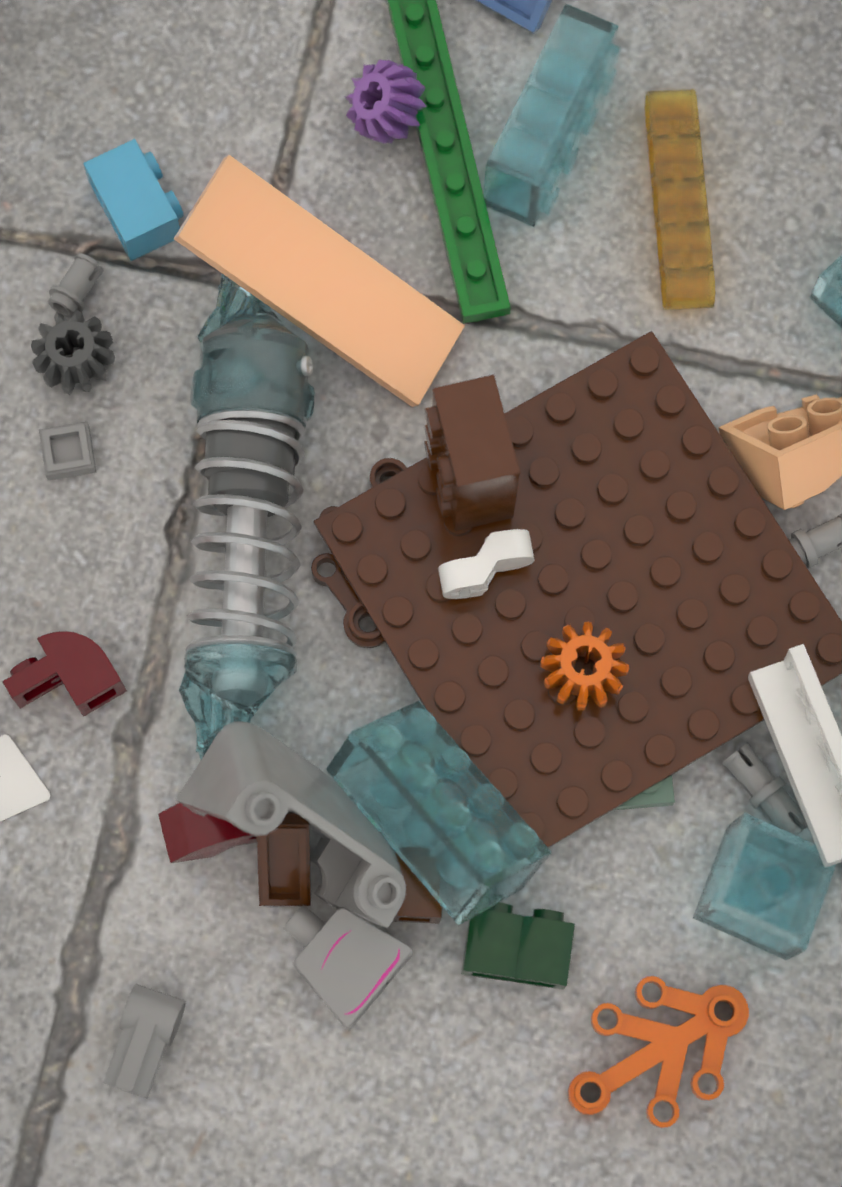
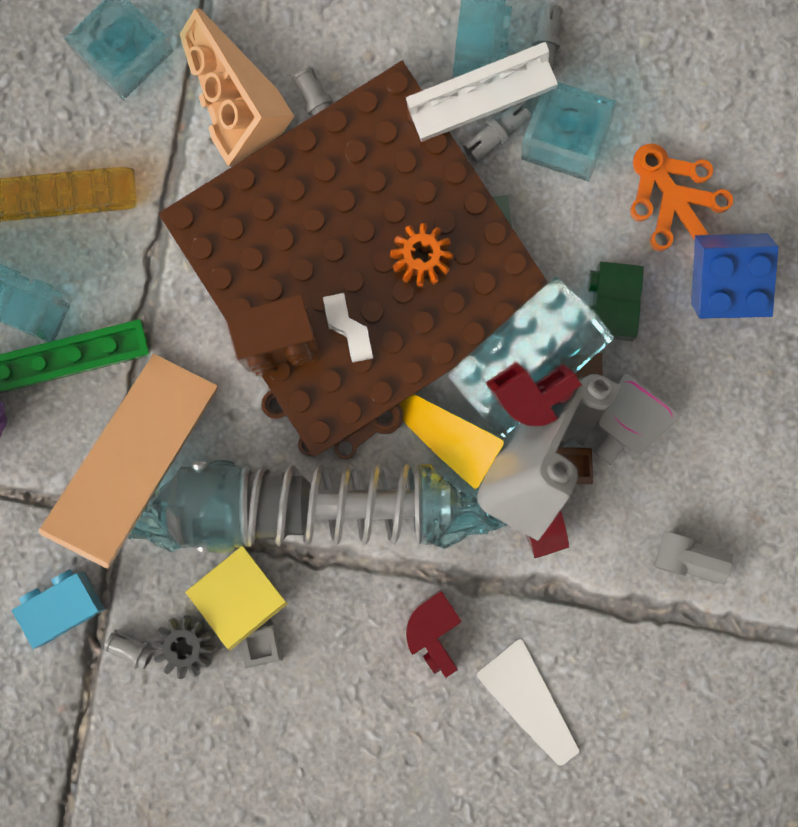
camera: 90 degrees left, 10 degrees up
(132, 420) = (236, 598): none -> light yellow tile
(327, 706) = (452, 439): none -> yellow sticker
(367, 788) = (530, 400): none -> dark red brick
(548, 1115) = (734, 275): none -> blue brick

